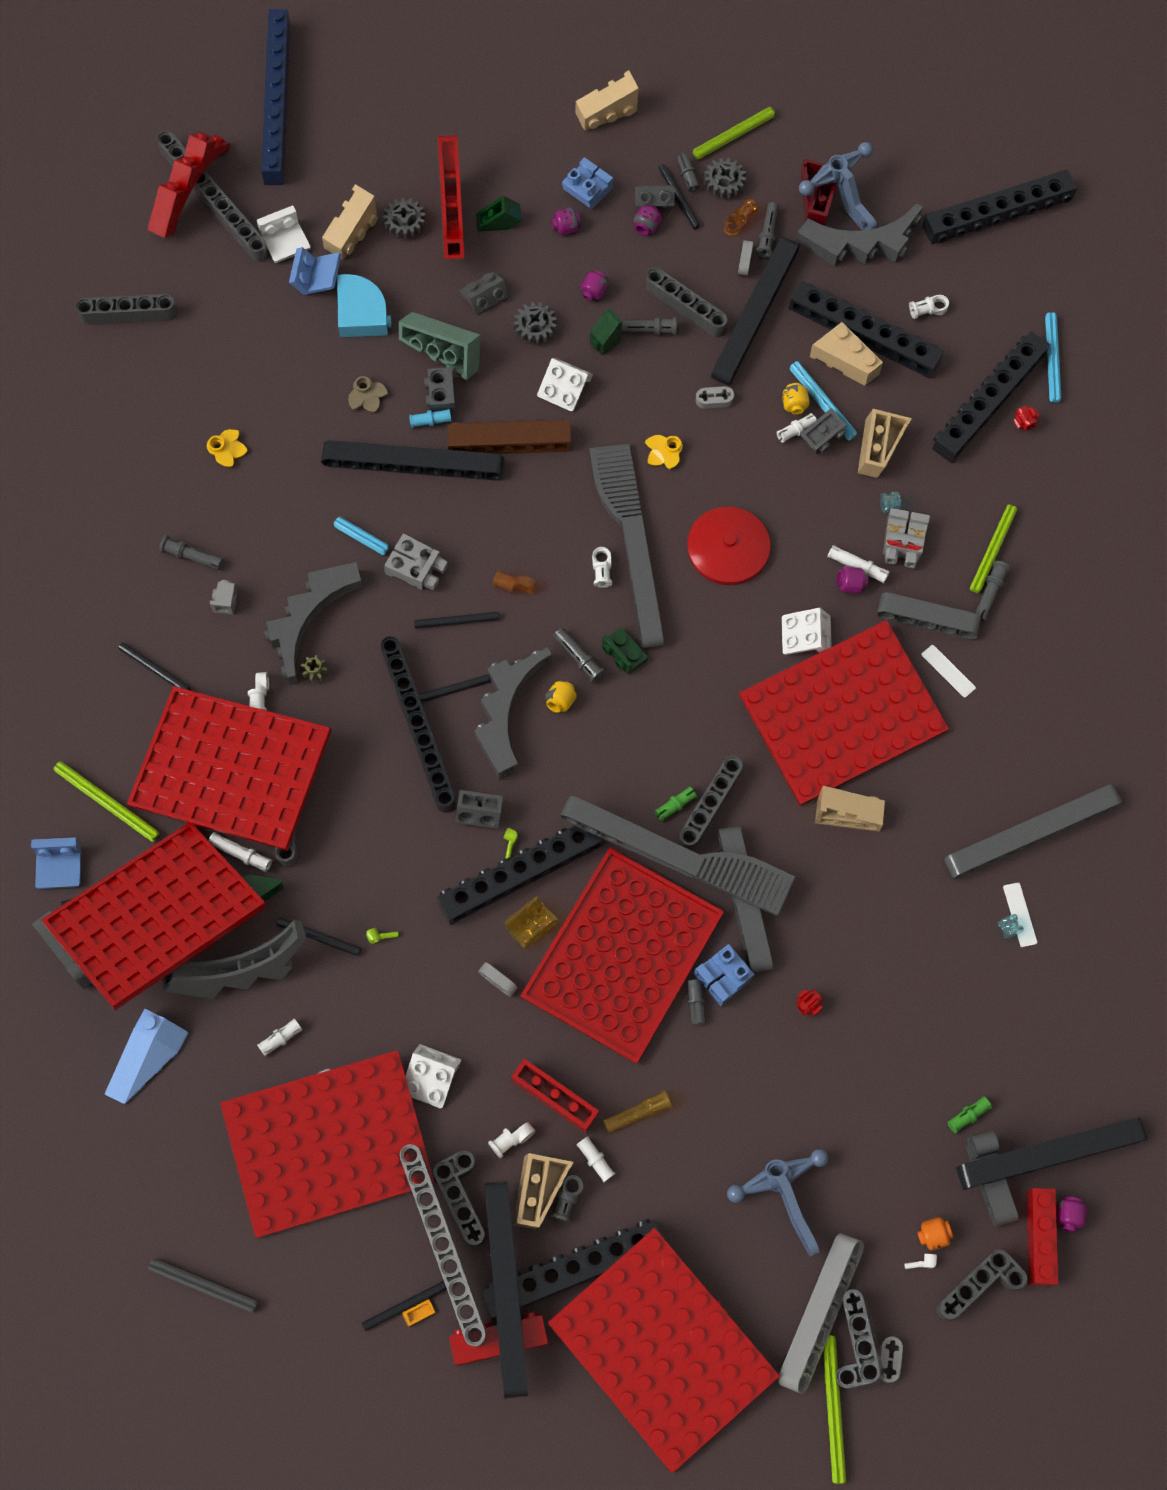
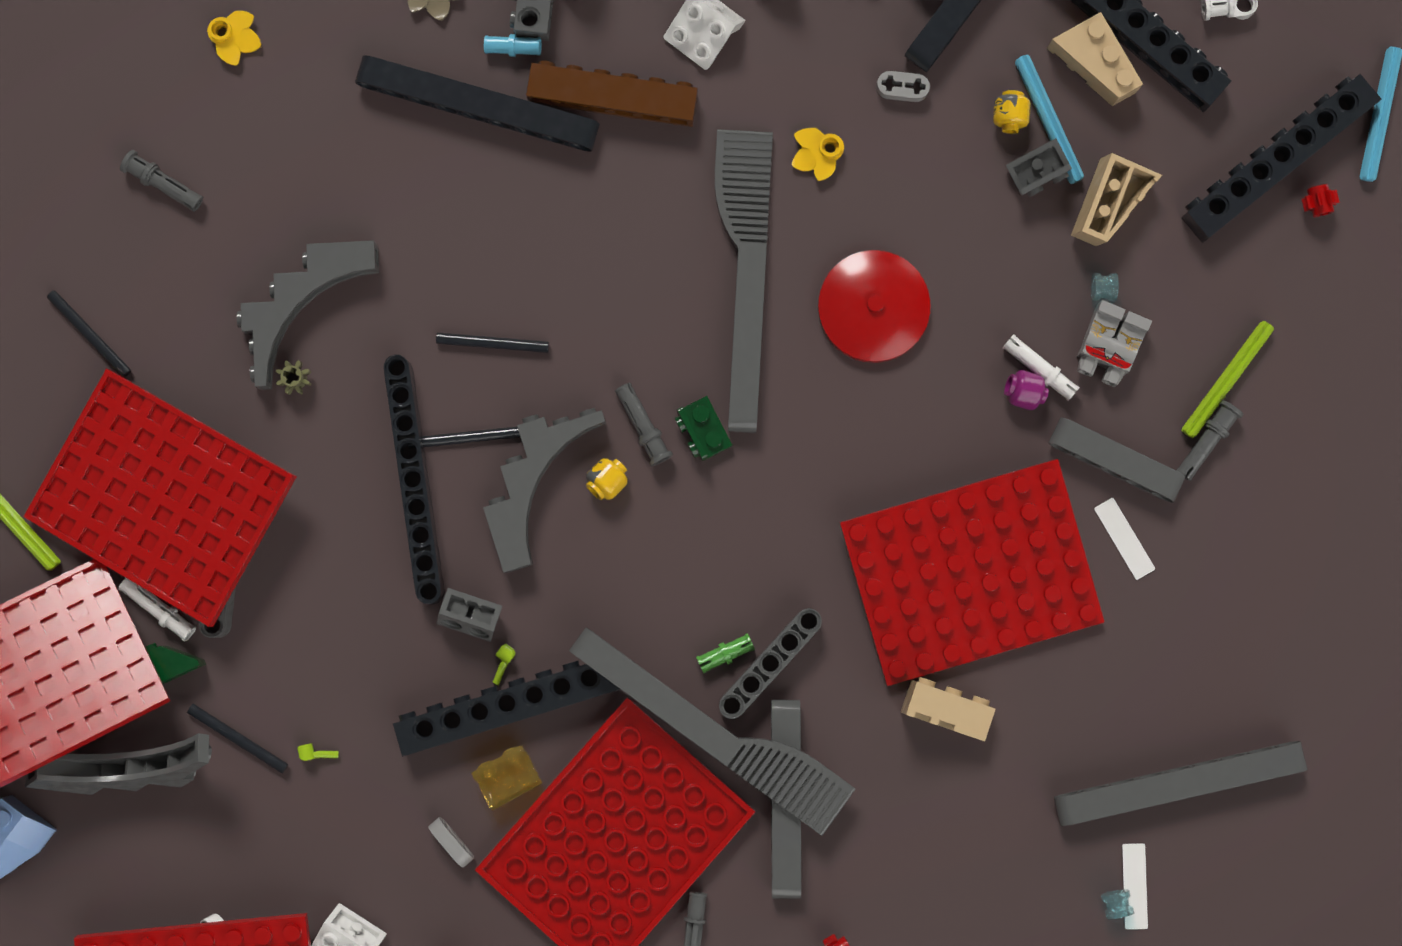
camera: 15 degrees right, 15 degrees up
(224, 598) = (194, 254): light grey brick -> none
(258, 695) = (213, 402): white connector -> none
(279, 1037) = (166, 860): white pin -> none
(361, 535) = (390, 199): medium azure axle -> none
(415, 563) = (462, 255): light grey hips -> none
(511, 583) = (572, 305): clear orange connector -> none
(602, 567) = (698, 305): white connector -> none
(723, 963) = (750, 893): medium blue hips -> none
(796, 428) = (1003, 153): white pin -> none
(806, 631) = (949, 451): white bracket -> none

